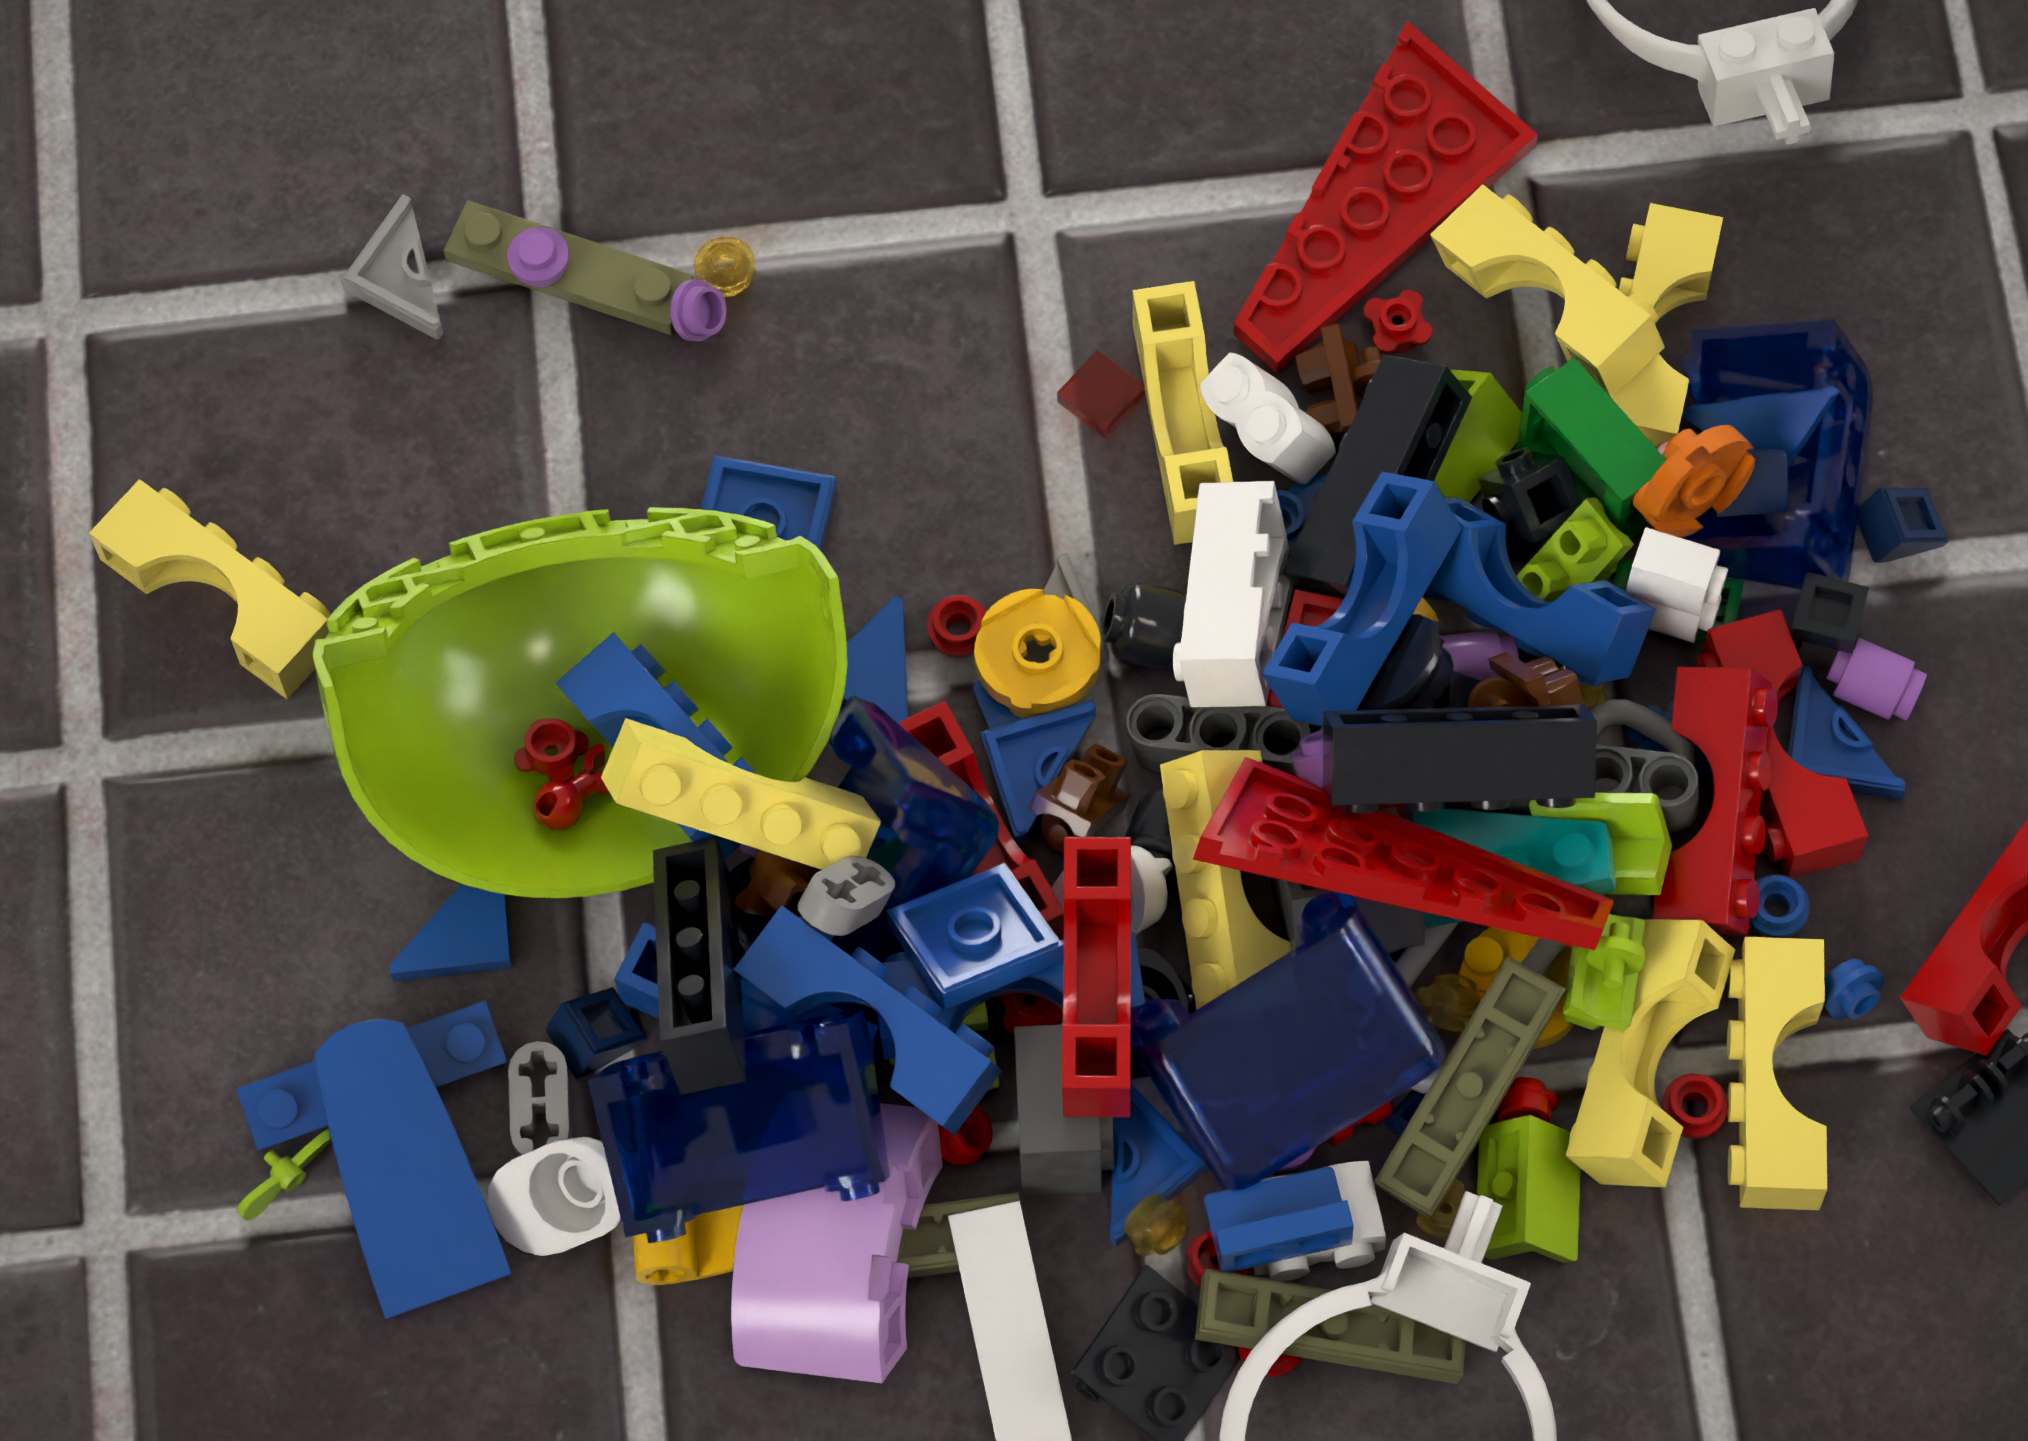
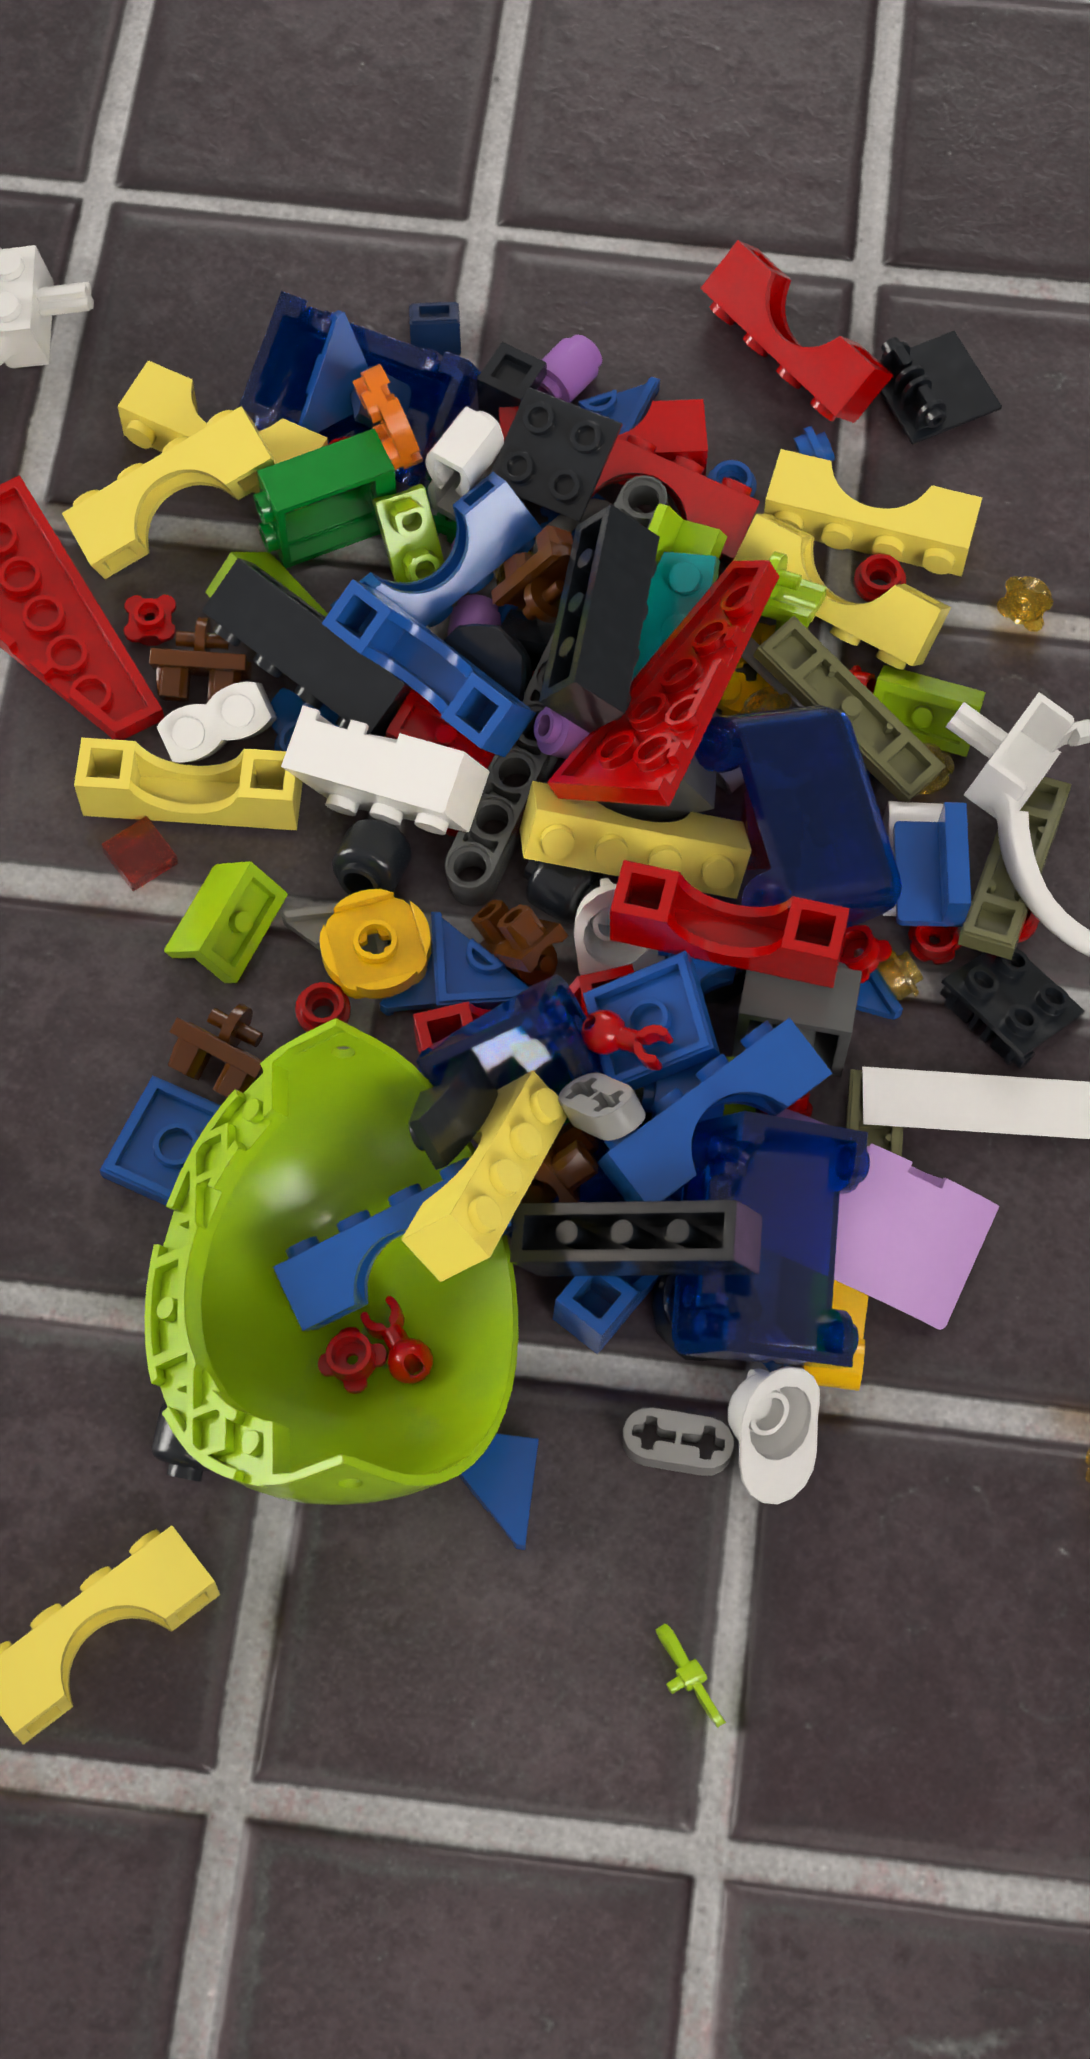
camera: 80 degrees left, 0 degrees up
(396, 1148) = (692, 1570): blue slope -> none
(593, 1031) = (618, 1384): dark blue slope -> none
(801, 747) = (454, 1111): none -> black slope
(882, 536) = (197, 1046): none -> reddish brown hips
(943, 886) = (611, 1035): none -> red arm
(1038, 502) = (227, 919): none -> lime panel
(1161, 1166) = (862, 941): none -> red plate
(1530, 494) = (345, 549): black brick -> none
(1702, 669) = (555, 453): none -> black hinge
(1709, 1280) = (1026, 602): none -> clear yellow plate

